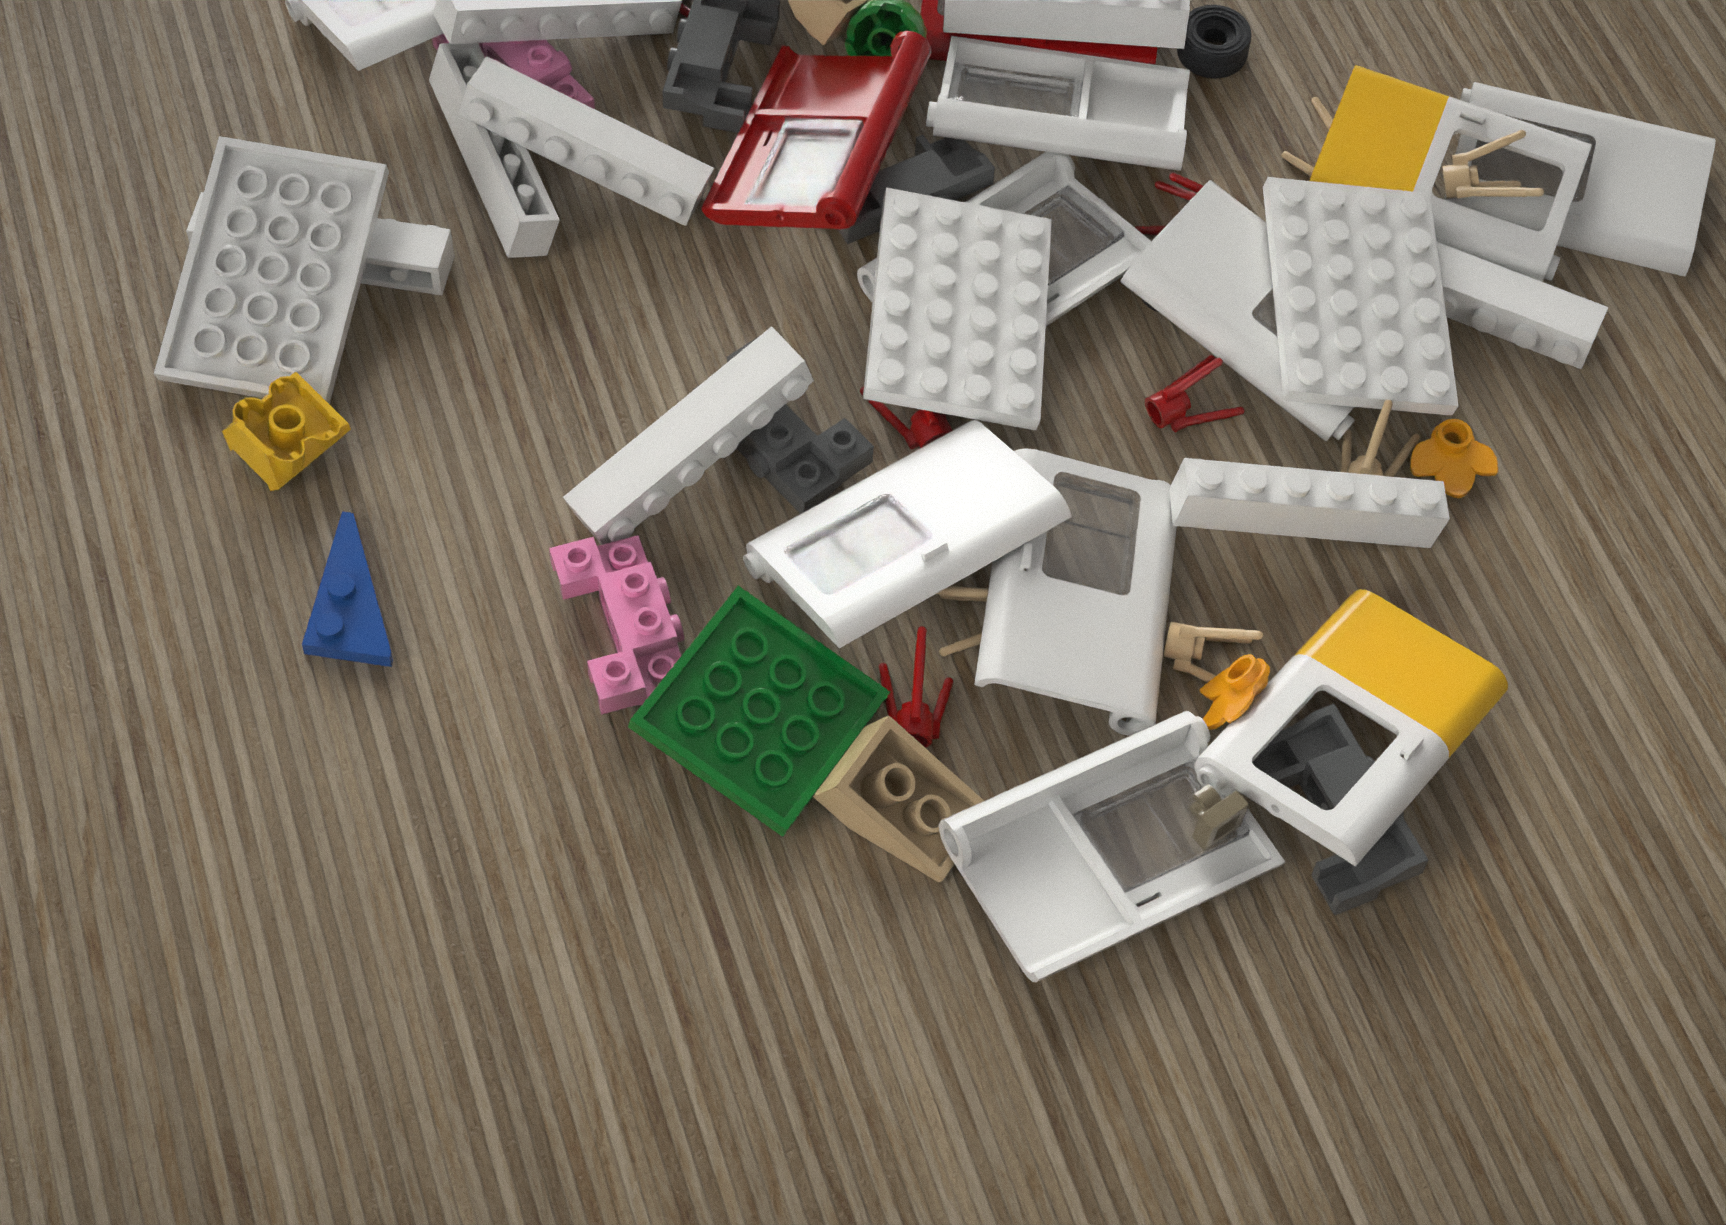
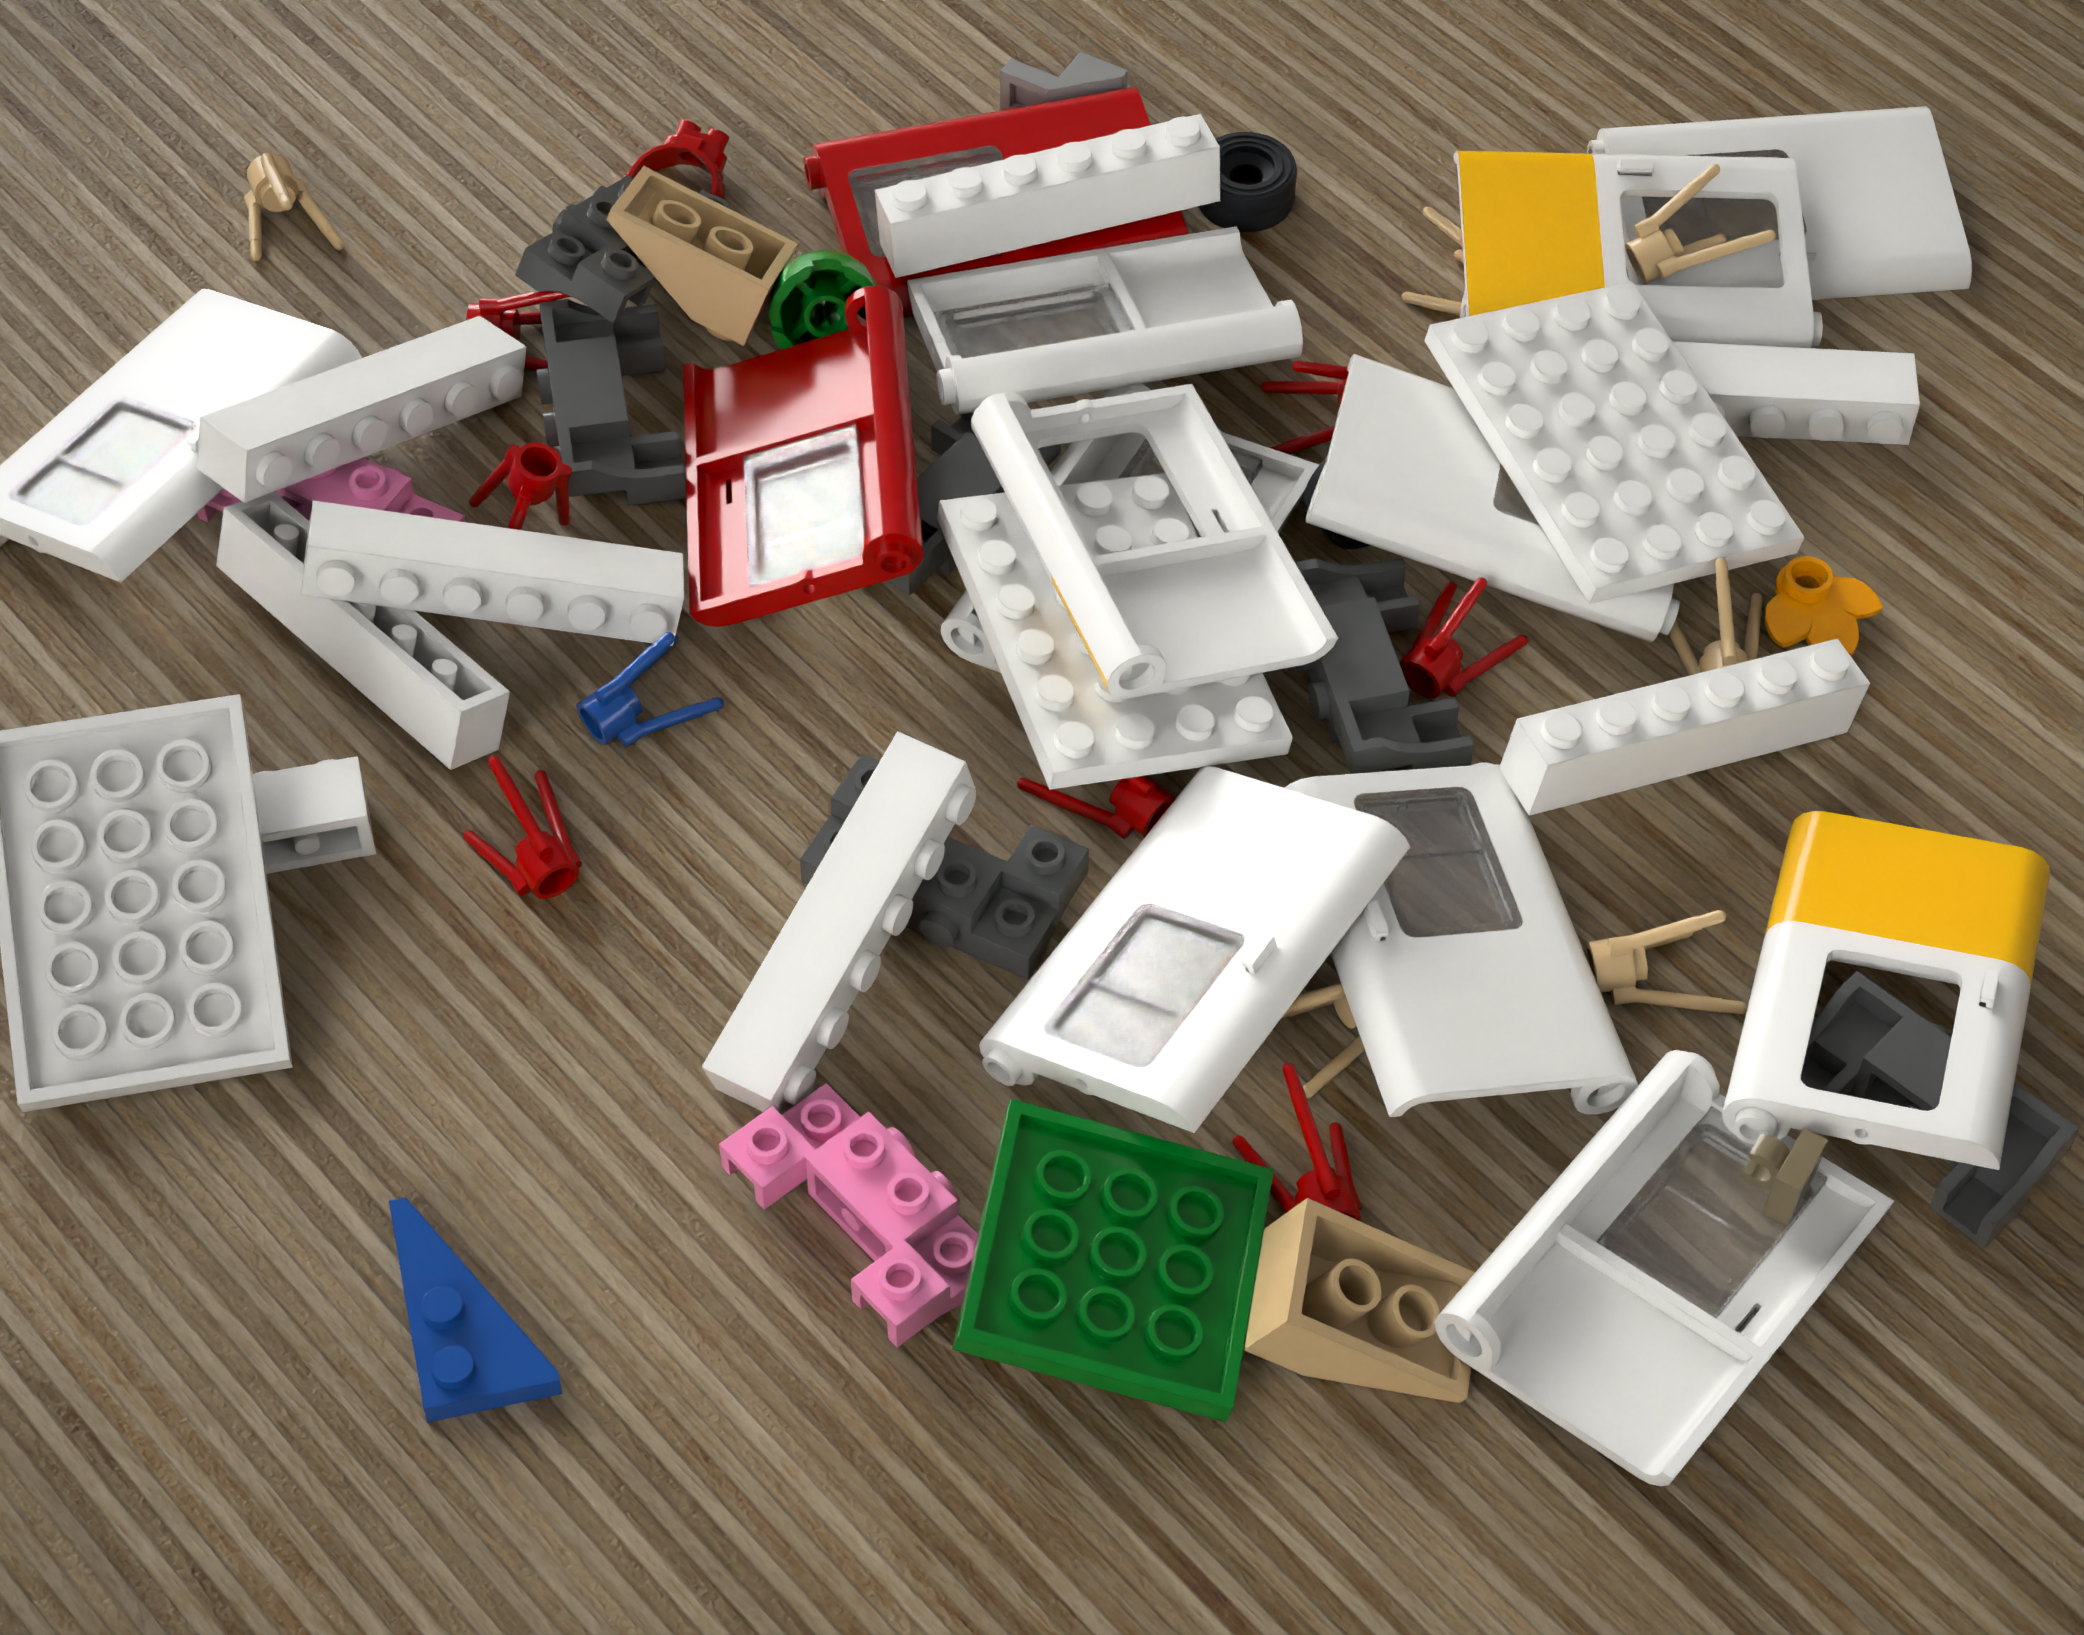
camera: 20 degrees left, 5 degrees down
(284, 429) = (251, 1117): yellow slope -> none
(536, 336) = (543, 861): none -> red plant
(626, 252) = (614, 707): none -> blue plant
(639, 87) = (533, 476): none -> red plant
(1005, 309) = (1173, 608): none -> white piece
(1111, 374) = (1360, 680): none -> dark grey bracket
(1234, 690) = (1719, 1001): light orange plate -> none

